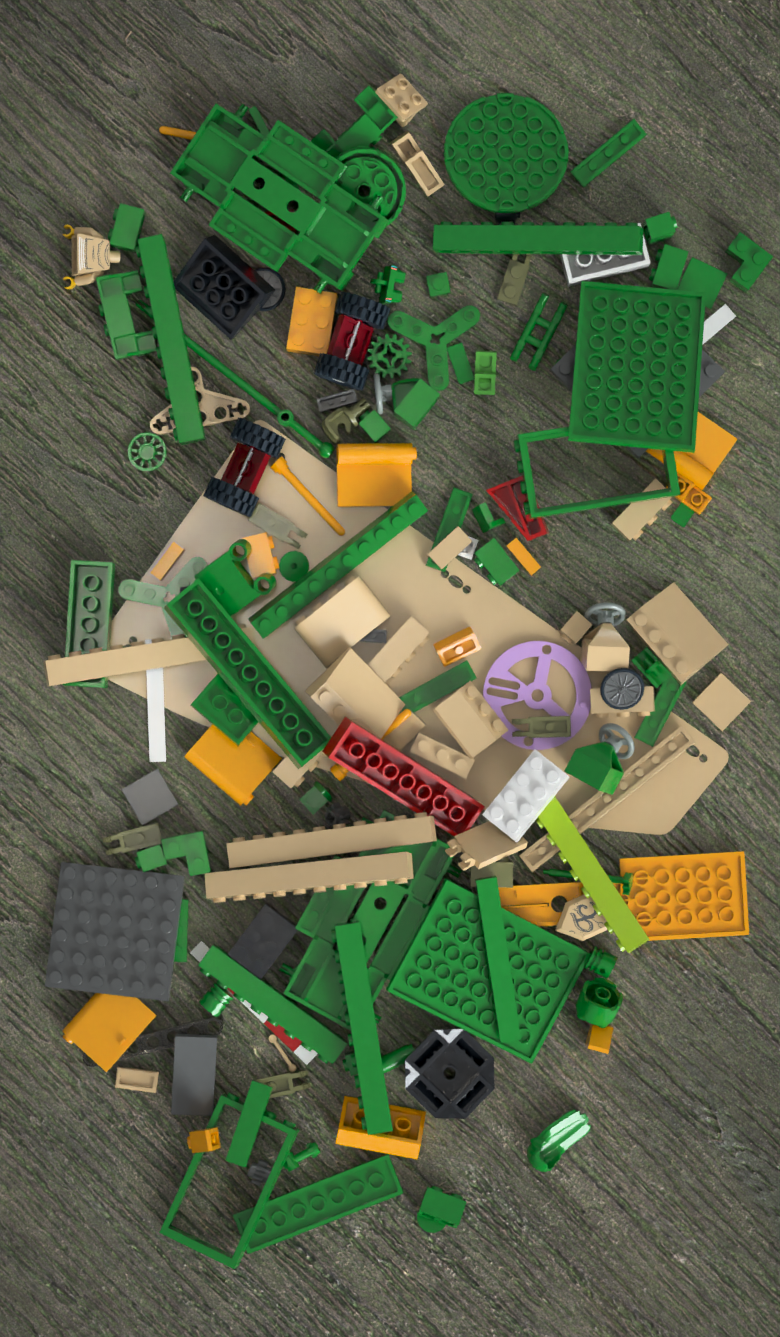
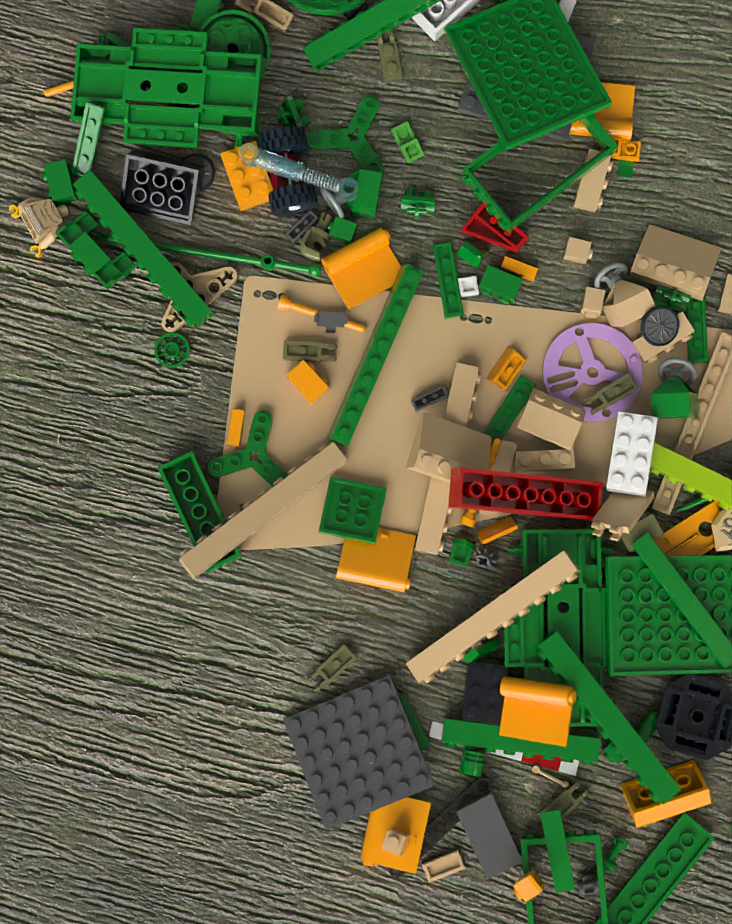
camera: 25 degrees left, 5 degrees down
(103, 1032) = (395, 841): none -> tan brick
(150, 796) = (326, 626): tile -> none
(151, 858) = (354, 675): green brick -> none
(156, 714) = (294, 556): white sticker -> none
(176, 202) = (88, 138): none -> tile
(192, 846) = (384, 647): green brick -> none
(231, 582) = (294, 416): green piece -> none
(245, 467) = (258, 316): black plate -> none
(248, 673) = (352, 478): green brick -> none
(282, 901) = (482, 650): none -> green tile
(293, 565) = (339, 375): green piece -> none
(300, 985) = (536, 710): none -> light orange door
(314, 507) = (330, 320): none -> dark grey piece
(331, 841) = (495, 579): tan brick -> none
(341, 620) = (402, 397): tan windscreen -> none
(357, 349) = (296, 171): none -> clear light blue piece
(361, 795) = (497, 530): none -> light orange slope
(399, 355) = (330, 164): green gear -> none
(438, 284) = (331, 94): green plate -> none
(449, 547) = (457, 292): tan tile -> none
(460, 363) = (383, 146): green sticker -> none
(460, 441) = (417, 204): none -> green hips
(533, 320) = (439, 79): green piece -> none
(589, 571) = (578, 250): none -> tan brick

